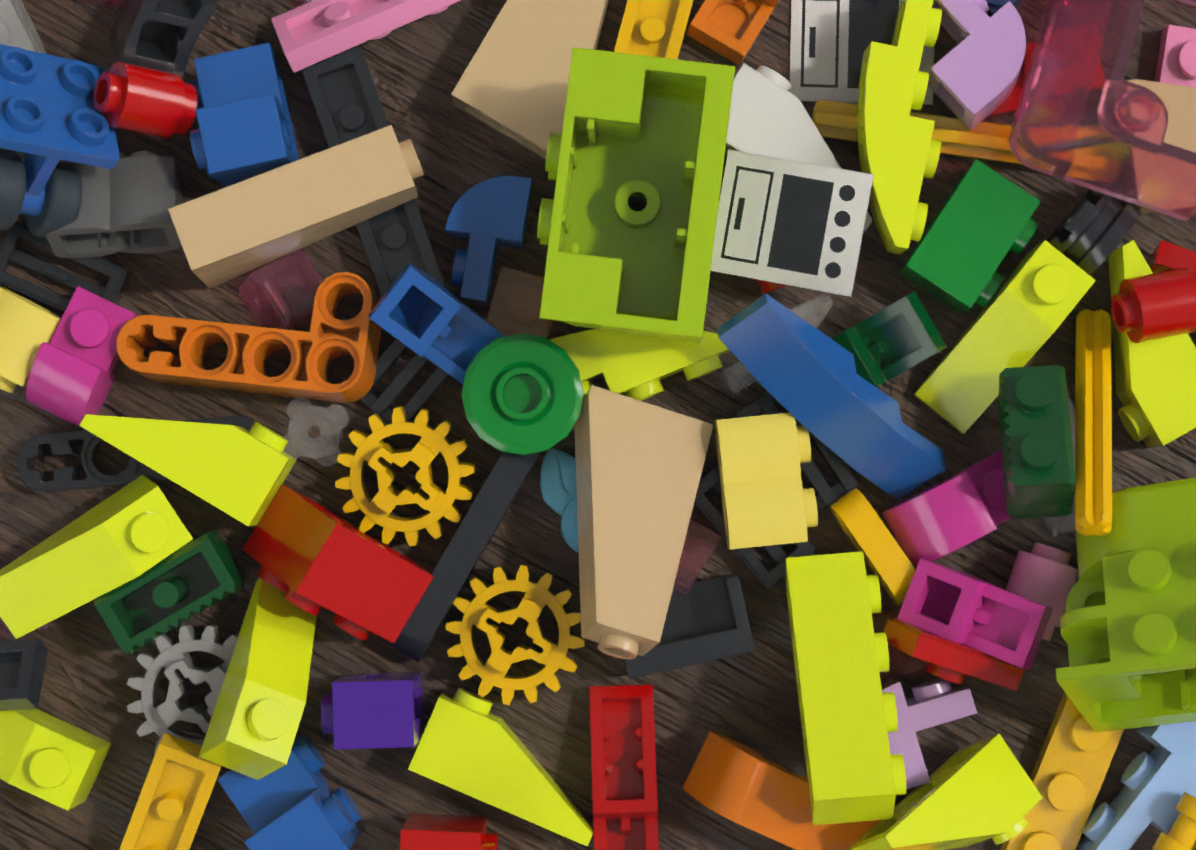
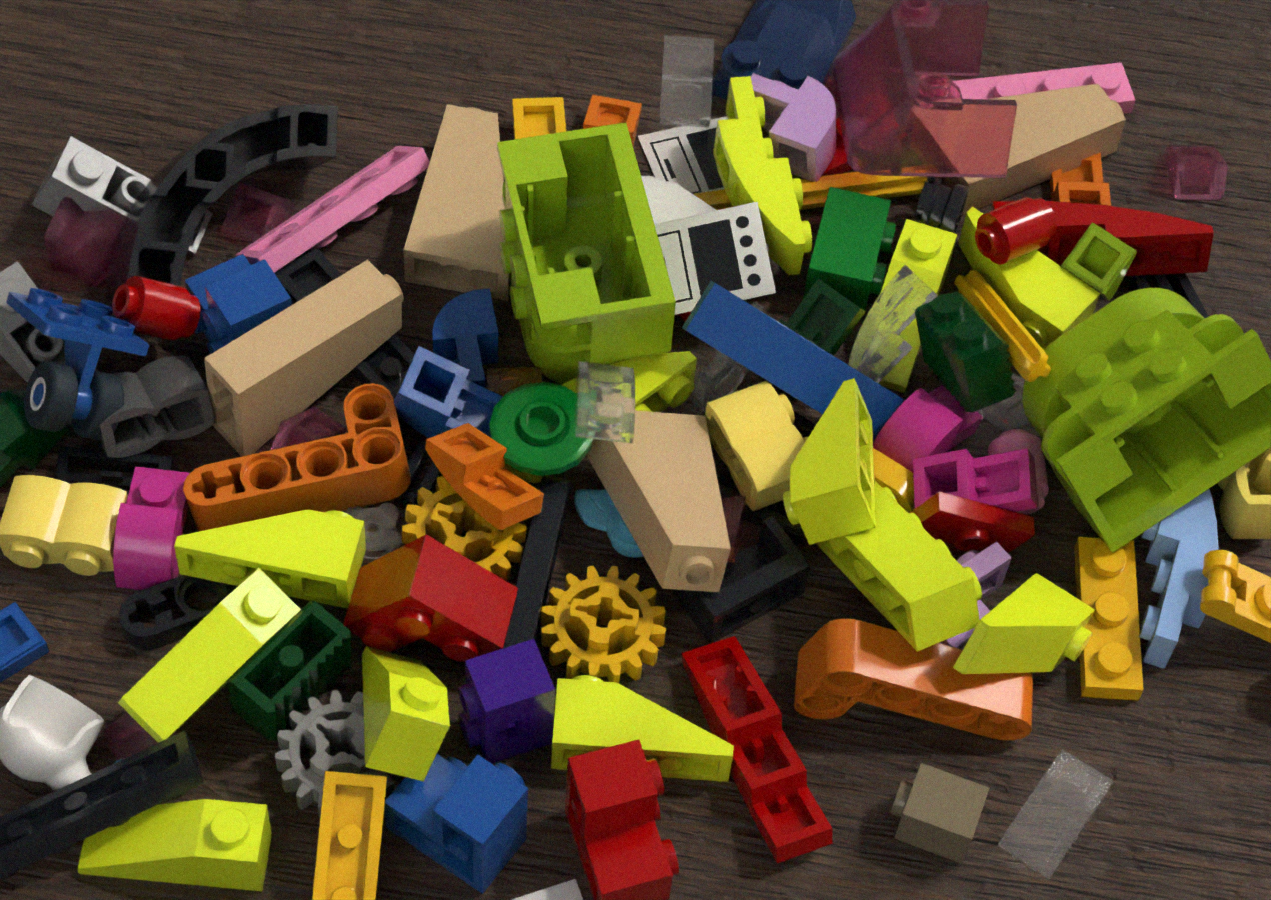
camera: 20 degrees left, 30 degrees down
(436, 435) = (477, 473): none -> orange slope
(596, 398) = (605, 402): none -> clear slope
(818, 568) = (835, 471): none -> neon yellow slope
(956, 383) = (879, 340): none -> clear slope

